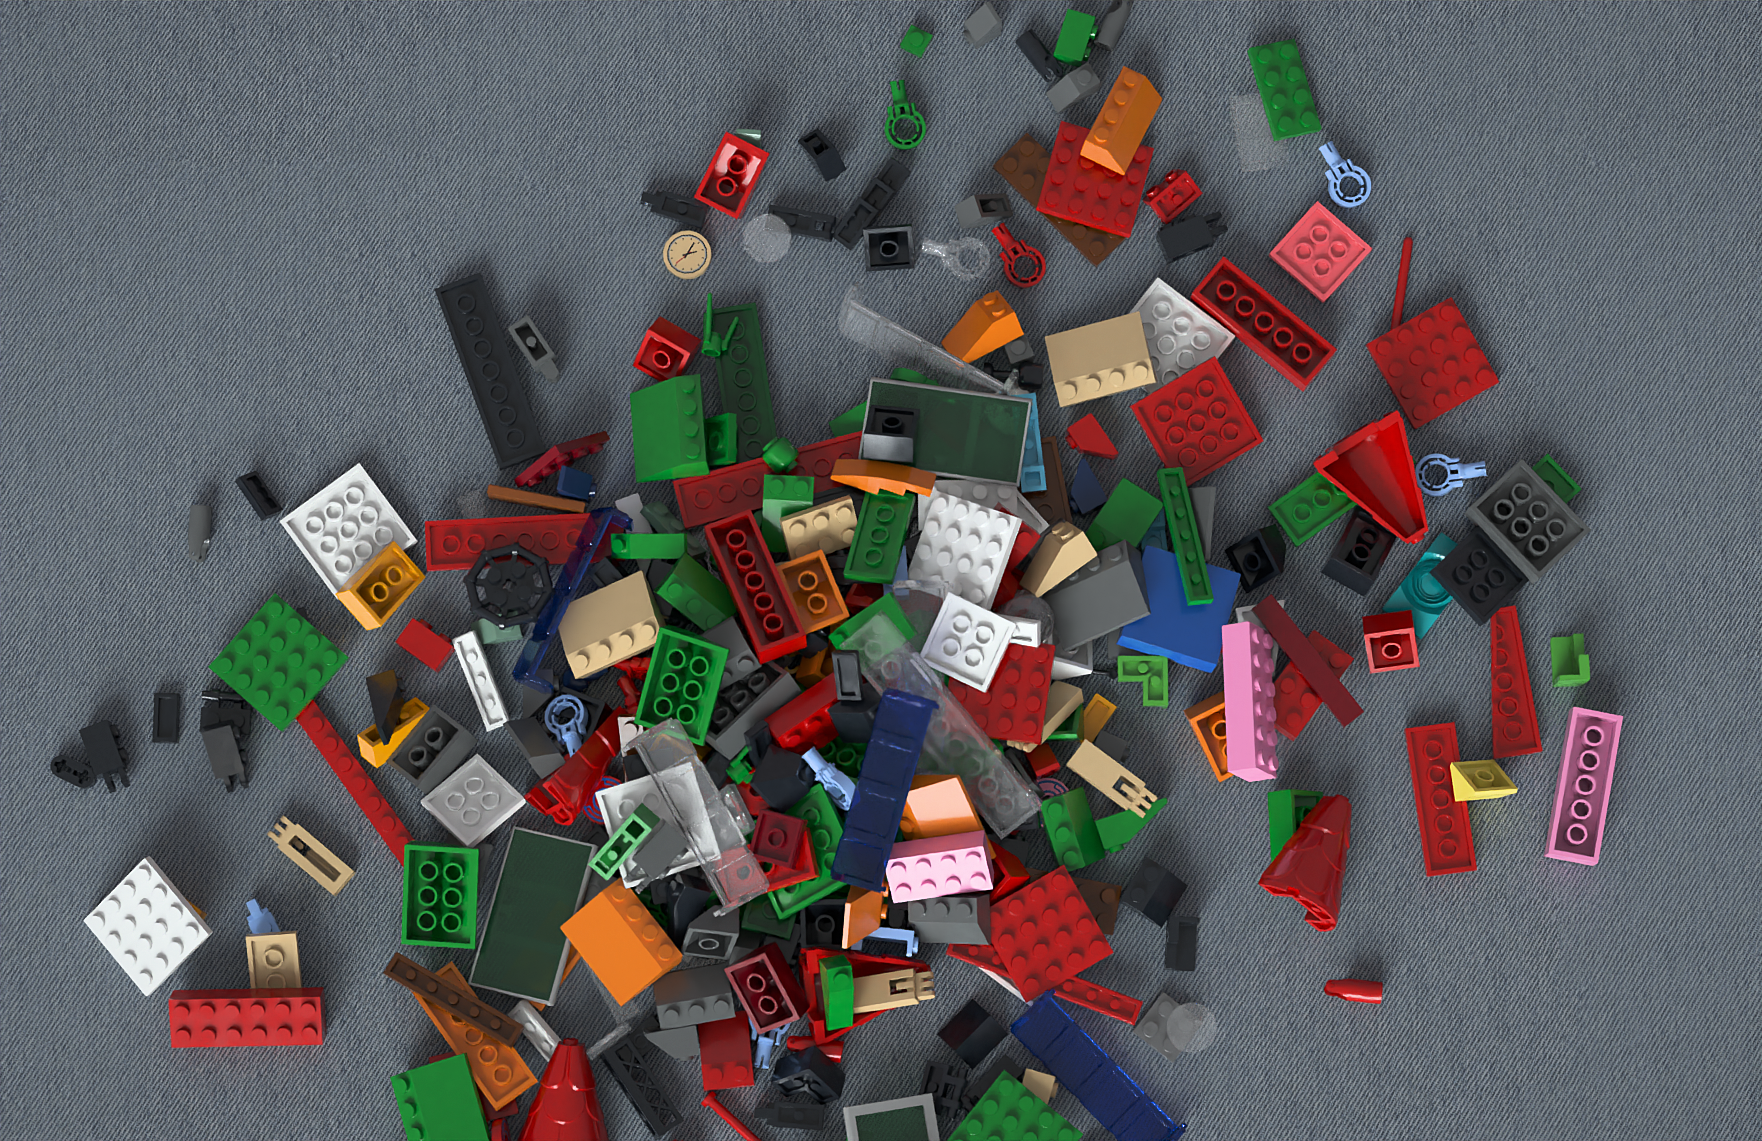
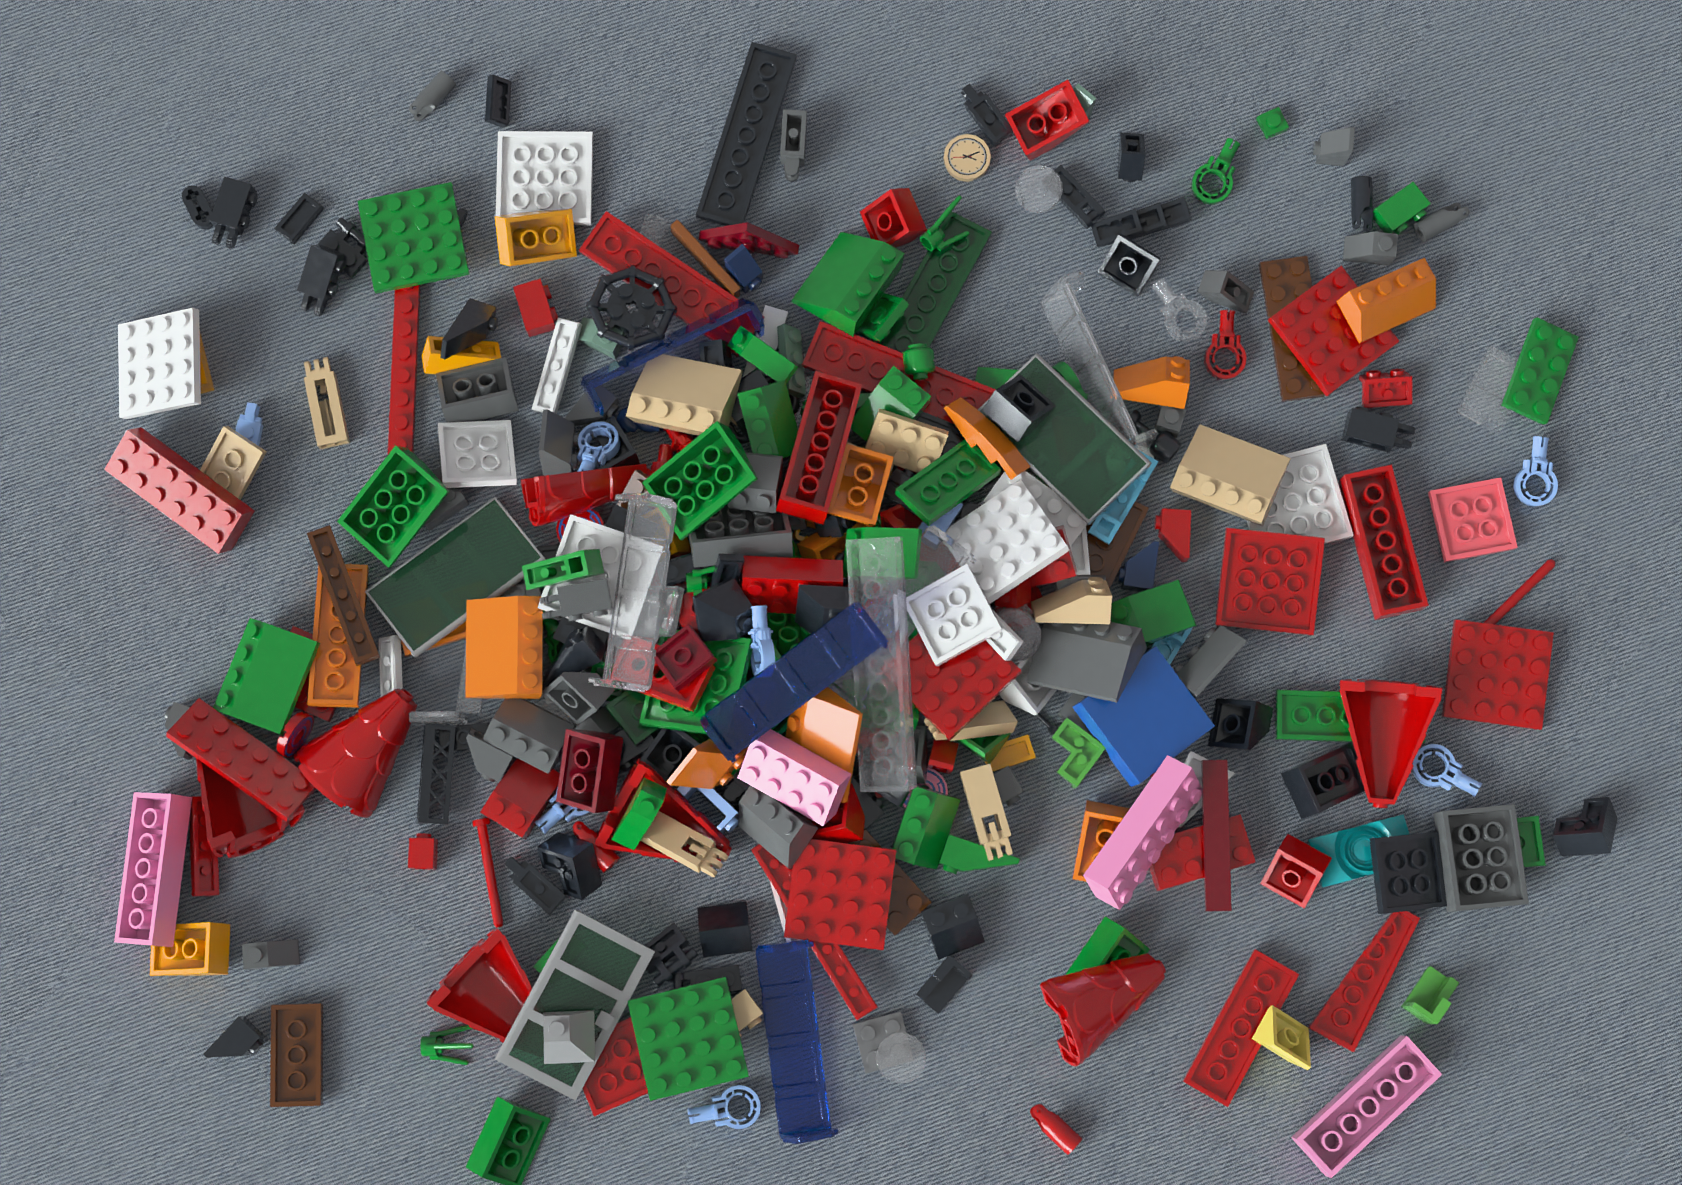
camera: 35 degrees right, 0 degrees up
(847, 674) = (835, 568): black tile -> none
(1185, 536) = (1192, 662): green plate -> none
(1597, 435) = (1588, 833): none -> black panel

